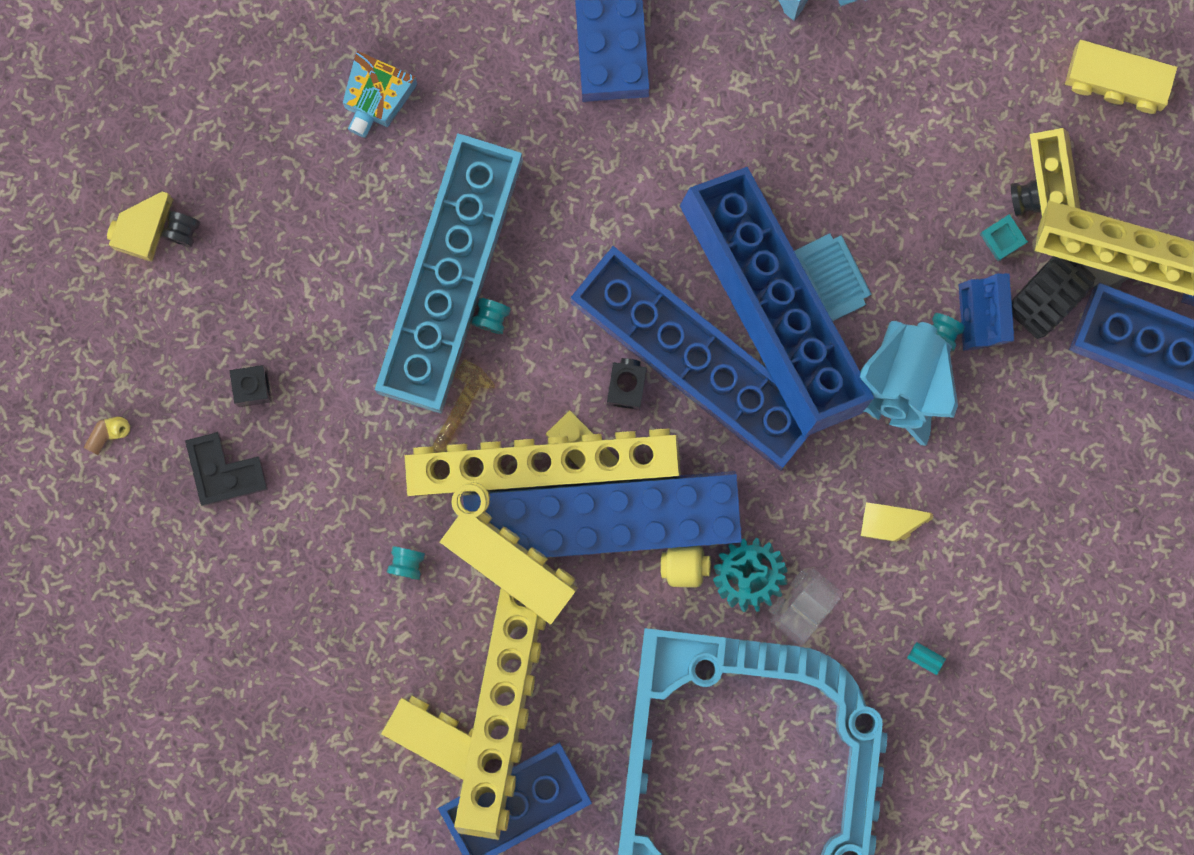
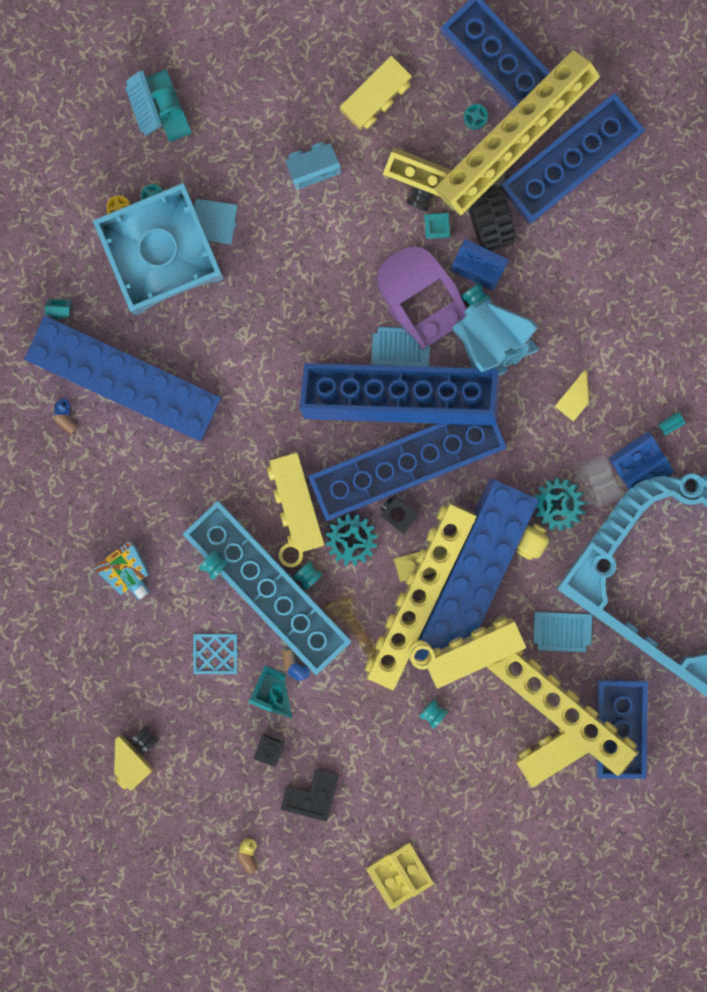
camera: 60 degrees left, 5 degrees up
(182, 634) = (399, 876): none -> light yellow slope
(320, 235) = (234, 654): none -> medium azure window
(322, 351) = (271, 693): none -> teal slope
(367, 360) = (293, 669): none -> arm
(440, 188) = (213, 565): none -> teal wheel
(569, 256) = (297, 506): none -> light yellow hinge
(579, 339) = (367, 544): none -> teal gear
(594, 667) = (562, 631): none -> medium azure window
(859, 645) = (640, 461): none -> blue slope
(923, 234) = (405, 276): none -> medium lavender slope
(990, 48) = (313, 165): none -> medium azure slope
(1169, 210) = (476, 112): none -> teal wheel

